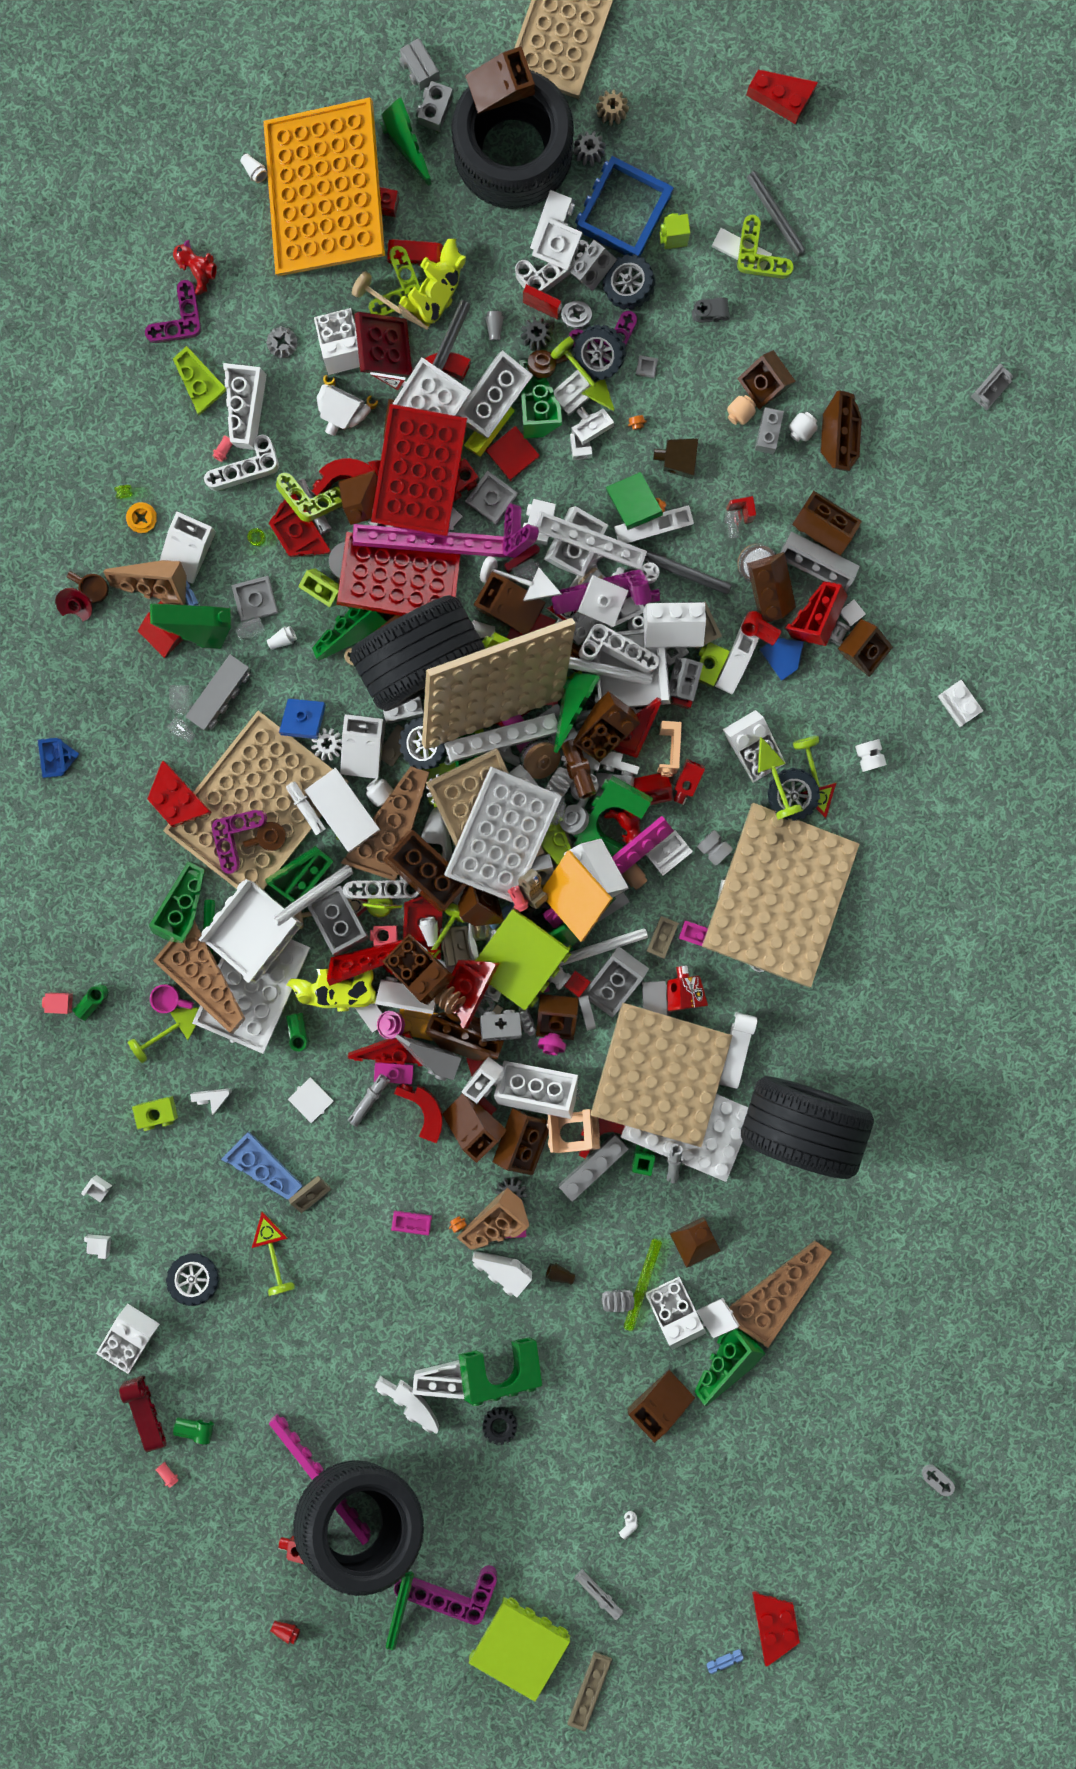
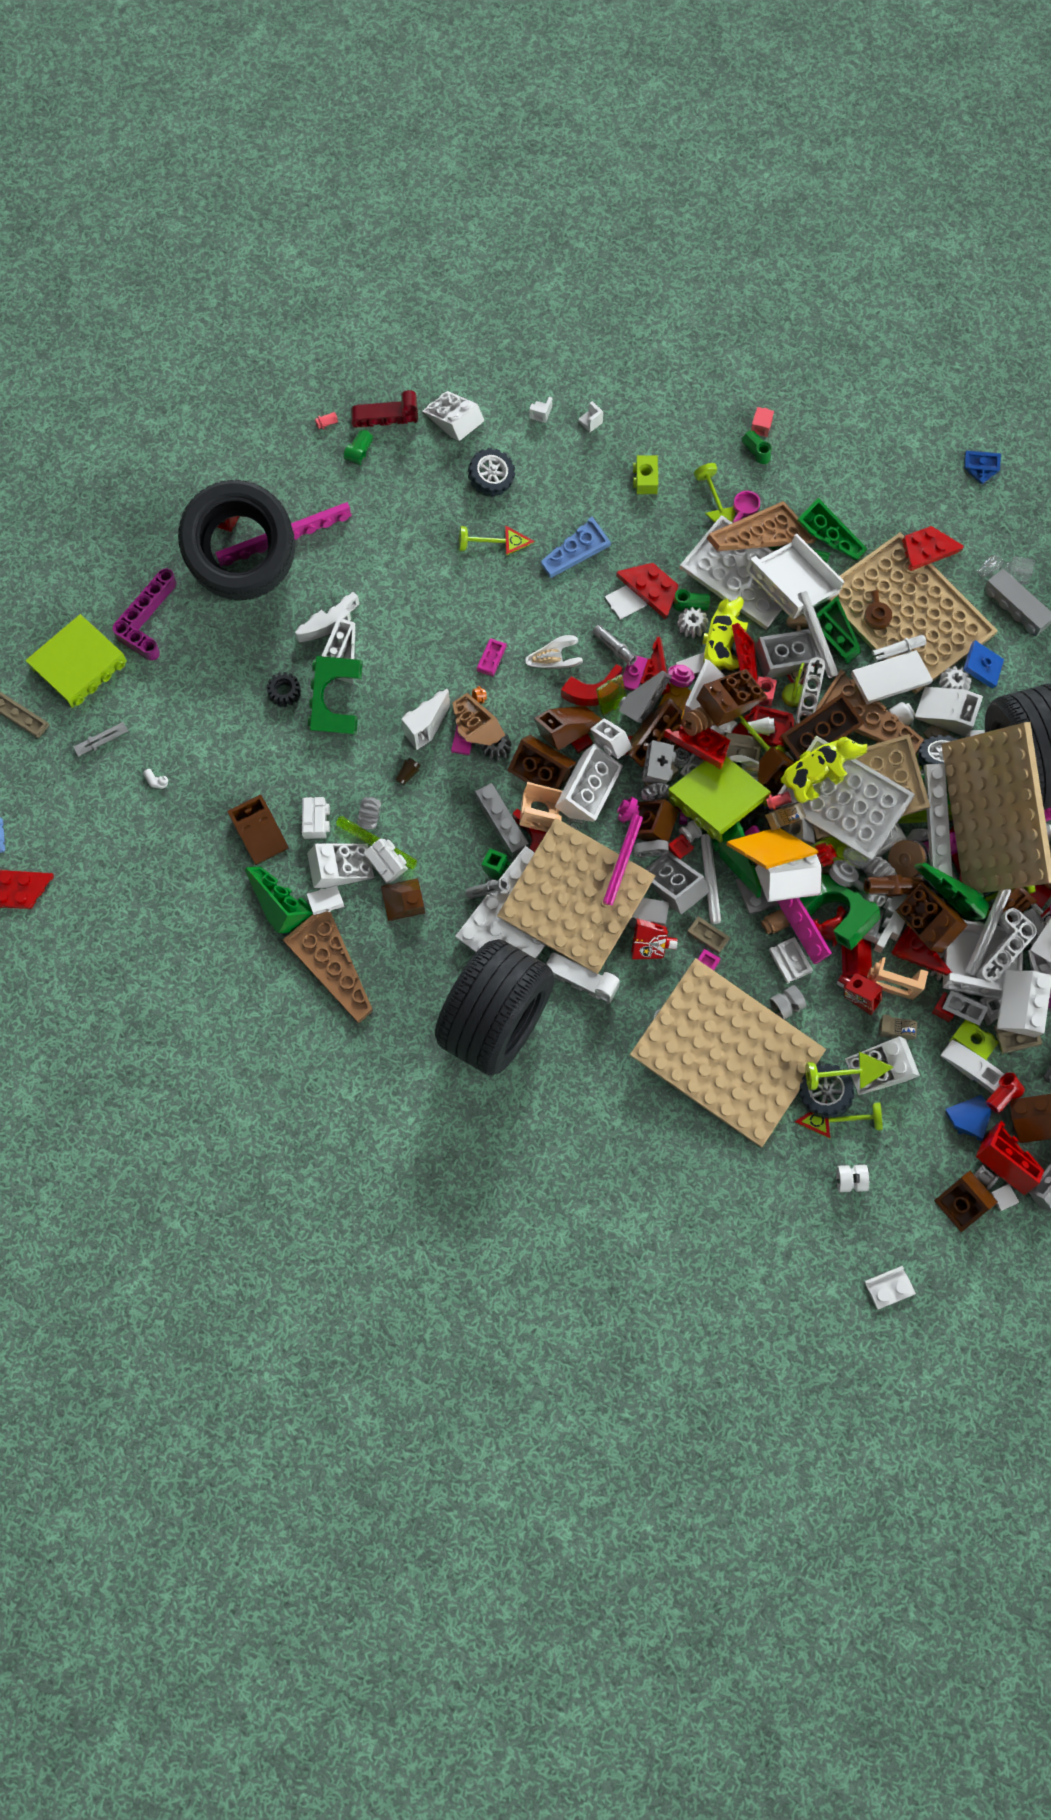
camera: 105 degrees right, 20 degrees down
(216, 1097) = (647, 523): white slope -> none
(230, 829) = (889, 581): magenta beam -> none
(287, 1632) = (159, 481): red cone -> none
(288, 1076) = (651, 586): none -> red wing
(309, 1194) = (541, 579): dark tan plate -> none
(317, 1020) = (686, 625): none -> white gear
(395, 1162) = (551, 656): none -> white animal
(399, 1610) = (147, 568): green axle -> none
(429, 1090) = (611, 694): none -> clear neon green piece
(480, 867) = (820, 764): none -> neon yellow animal
(562, 842) = (825, 854): none -> red gear
(624, 1039) = (622, 860): none -> dark pink axle
(633, 1352) = (315, 818): none -> white brick
(664, 1270) = (385, 860): none -> white brick
(713, 738) = (897, 1027): none -> dark tan leg
(936, 1483) = (103, 1076): light grey beam -> none

